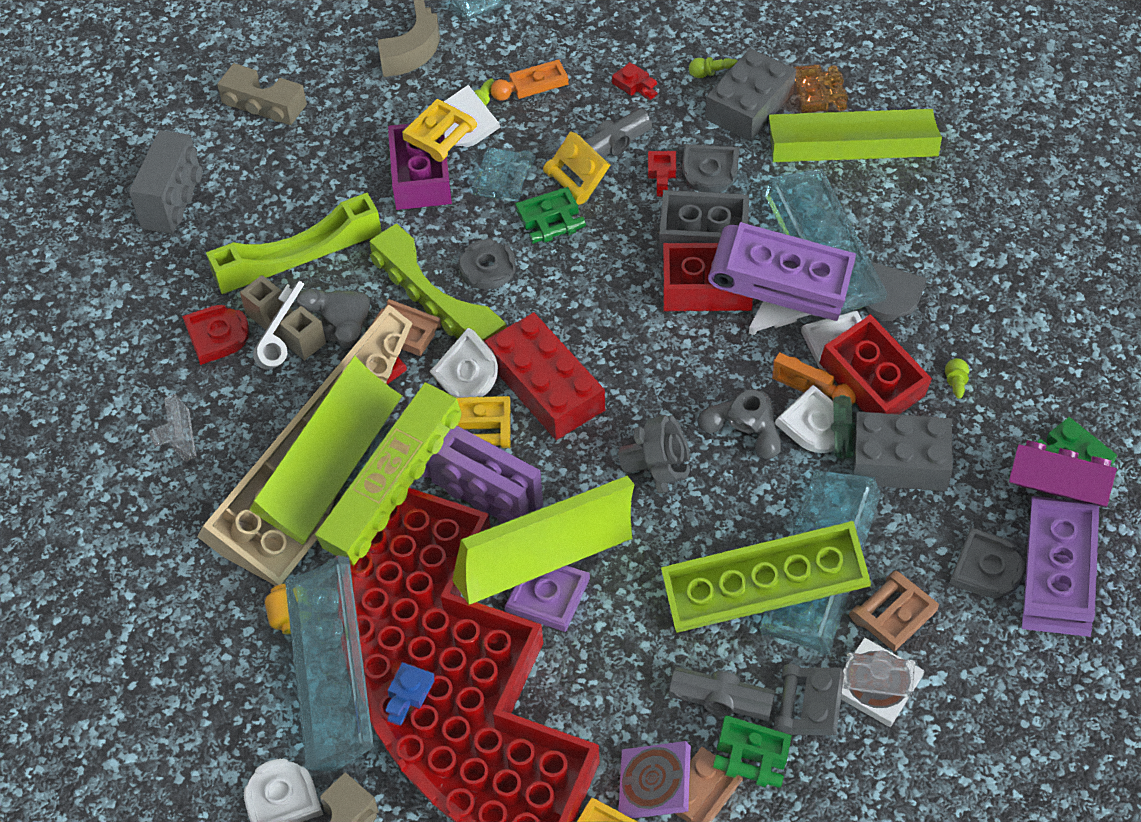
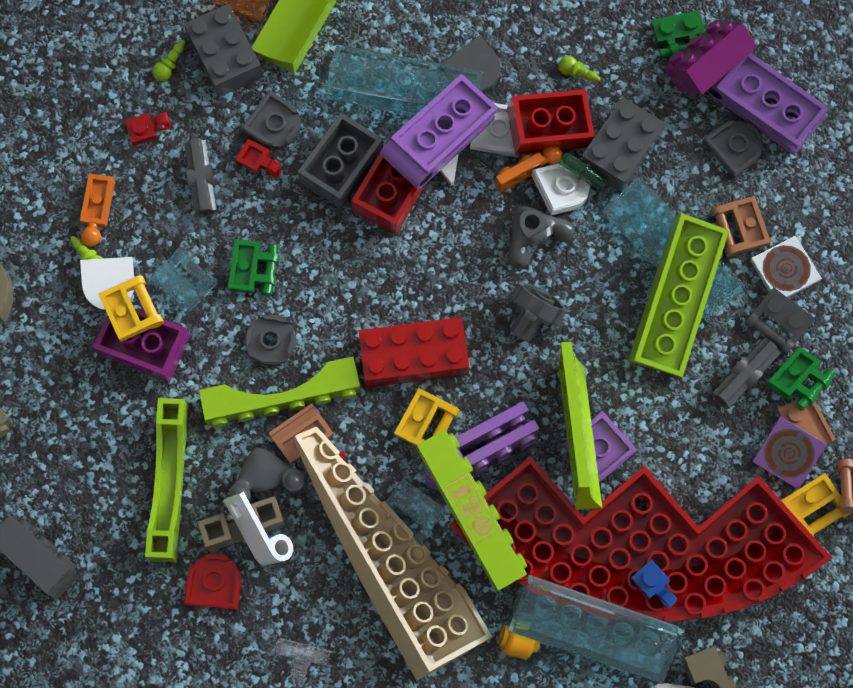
camera: 65 degrees left, 20 degrees up
(326, 452) = (404, 548): lime arch -> none
(467, 367) = (374, 406): white tile -> none
(582, 161) = (219, 214): yellow plate -> none
(879, 674) = (786, 265): clear tile -> none

